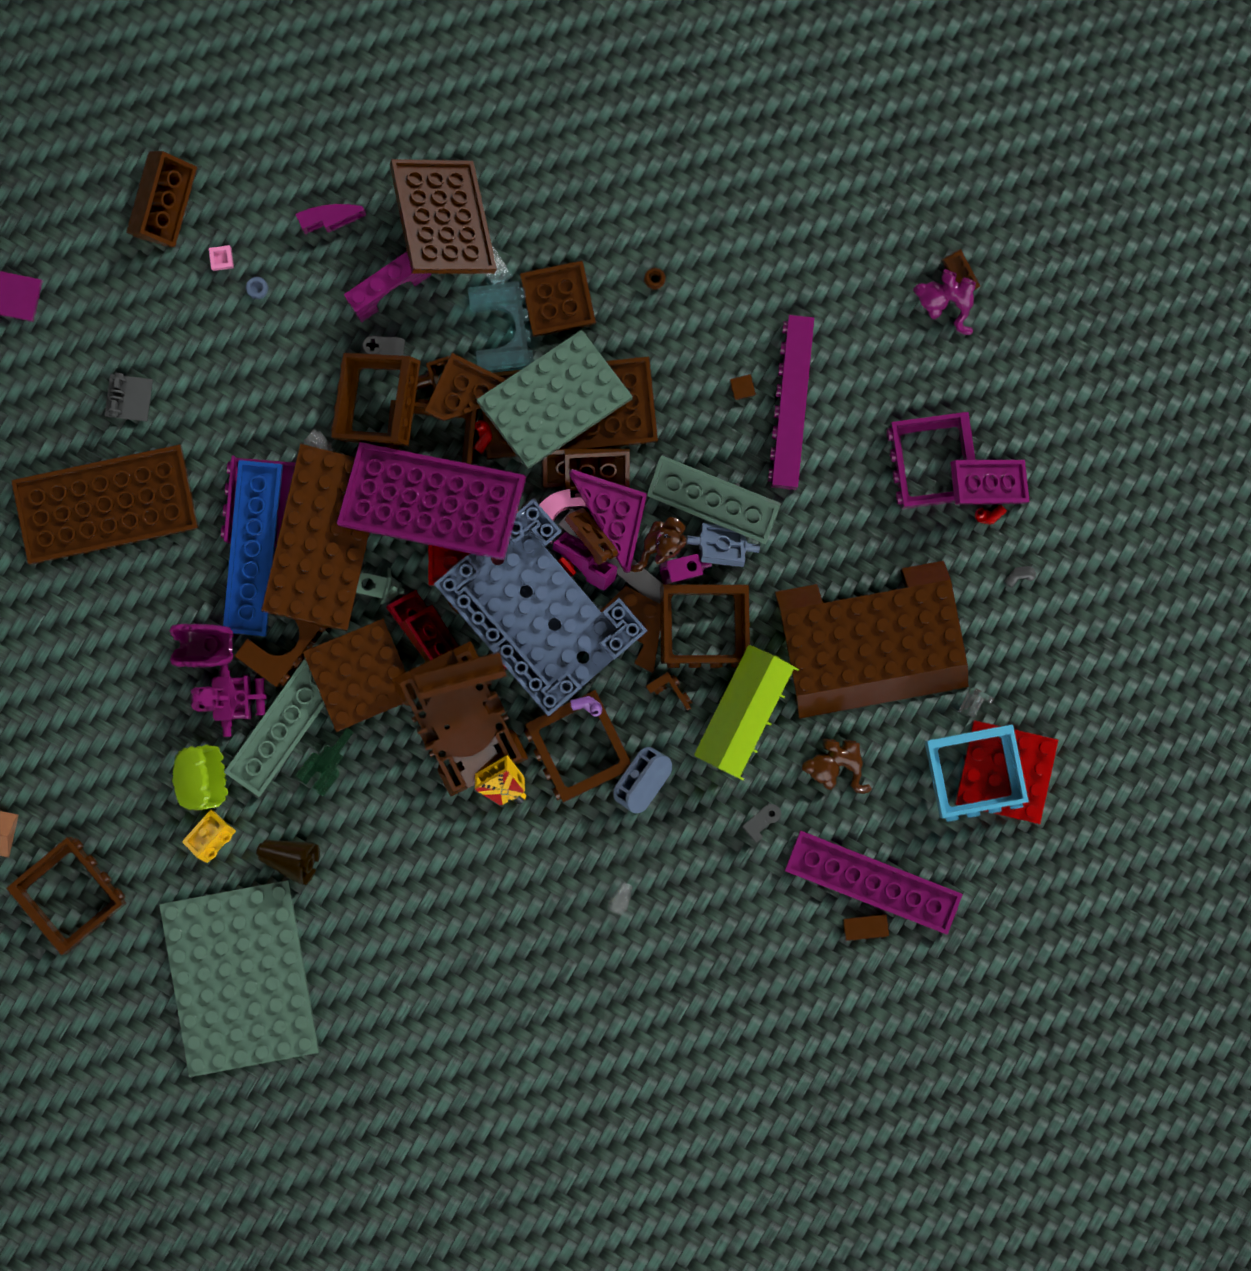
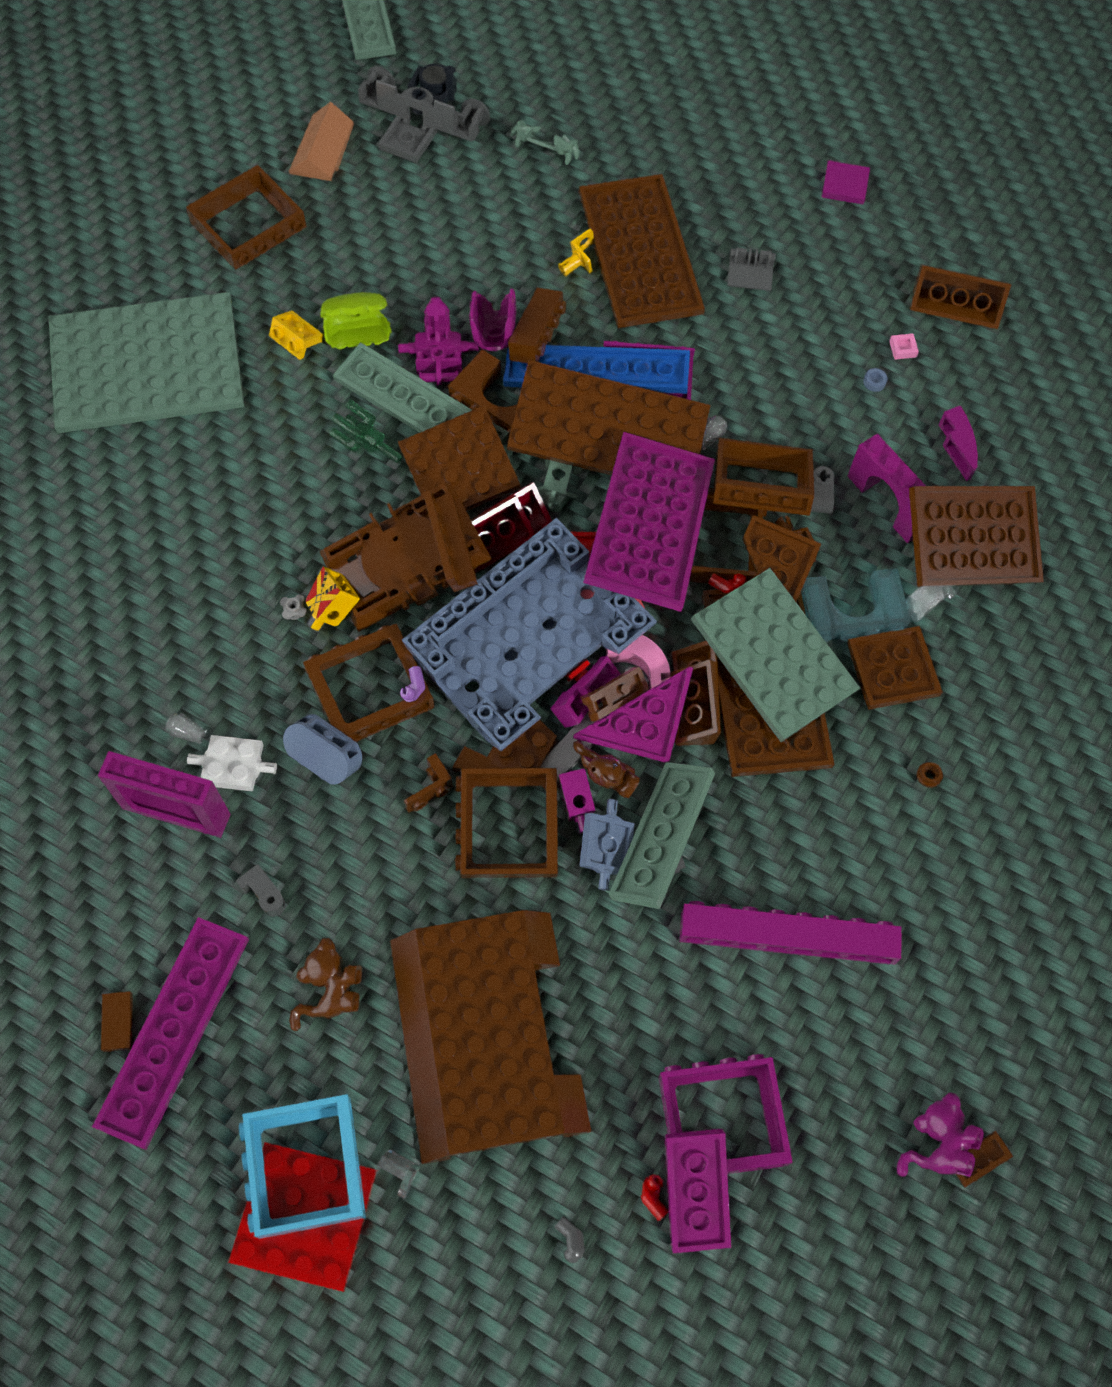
camera: 90 degrees right, 20 degrees down
(118, 566) = (578, 258): none -> yellow bracket
(206, 604) = (536, 325): none -> reddish brown brick
(290, 858) = (262, 402): dark brown cone -> none
(507, 811) = (295, 613): none -> light grey plate
(650, 857) = (232, 762): none -> white plate
(694, 902) = (165, 794): none -> magenta piece
(742, 387) = (804, 876): reddish brown tile -> none
(744, 711) = (398, 862): lime piece -> none

